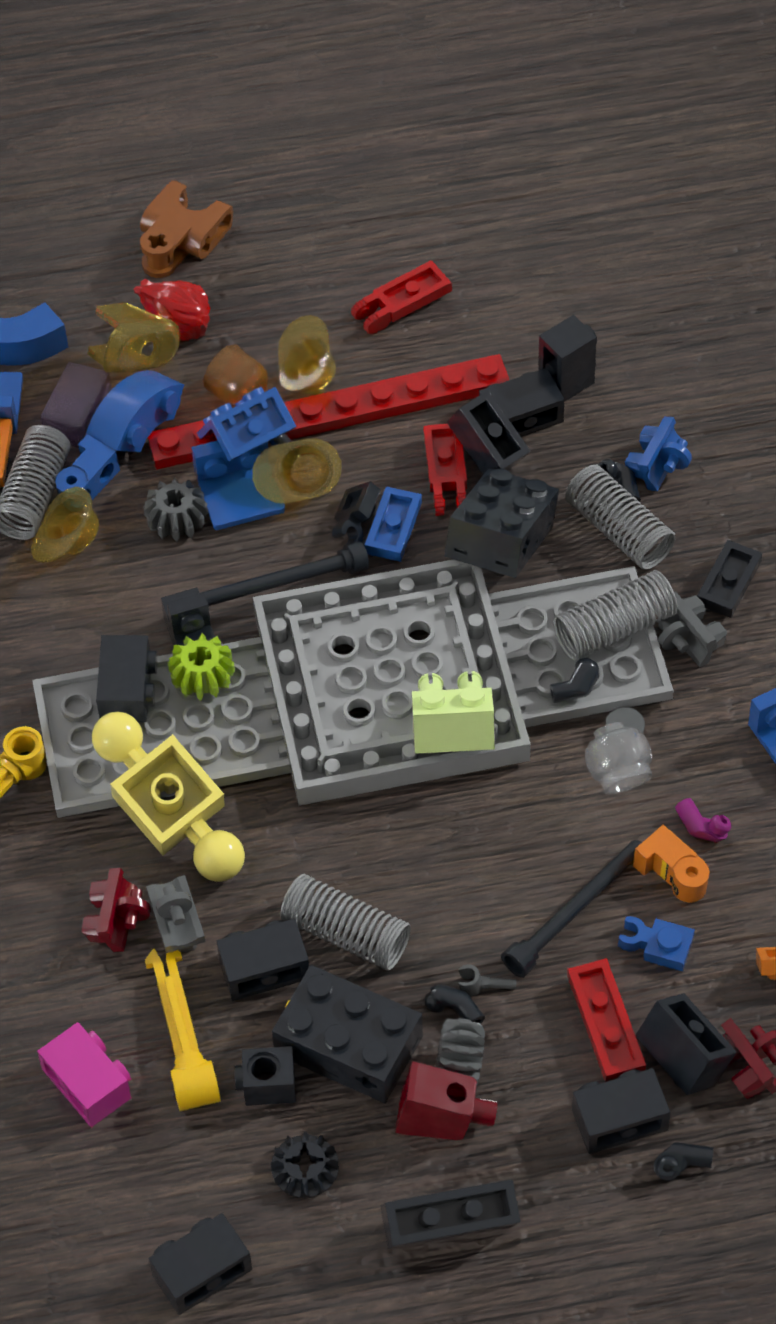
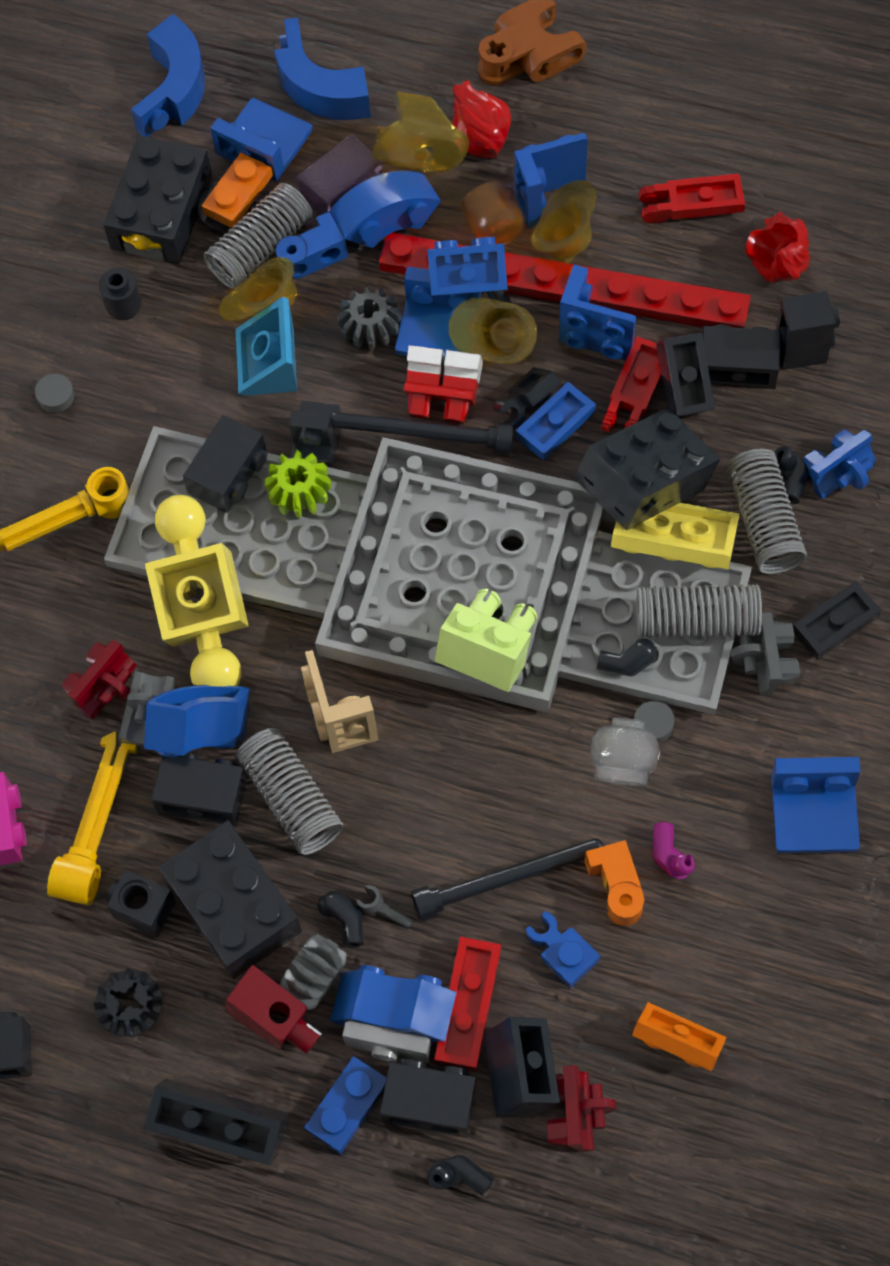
camera: 30 degrees right, 10 degrees up
(99, 574) = (267, 351): none -> dark azure slope
(230, 897) = (196, 719): none -> blue brick
(265, 319) = (546, 169): none -> blue bracket
(290, 533) = (426, 377): none -> red hips
(351, 846) = (344, 724): none -> tan bracket
(382, 429) = (590, 325): none -> blue bracket
(504, 305) = (779, 248): none -> red hair
(544, 1050) = (394, 1003): none -> blue brick
(550, 1153) = (346, 1105): none -> blue plate
(554, 1083) = (386, 1043): none -> light grey plate
(561, 564) = (683, 534): none -> light yellow plate

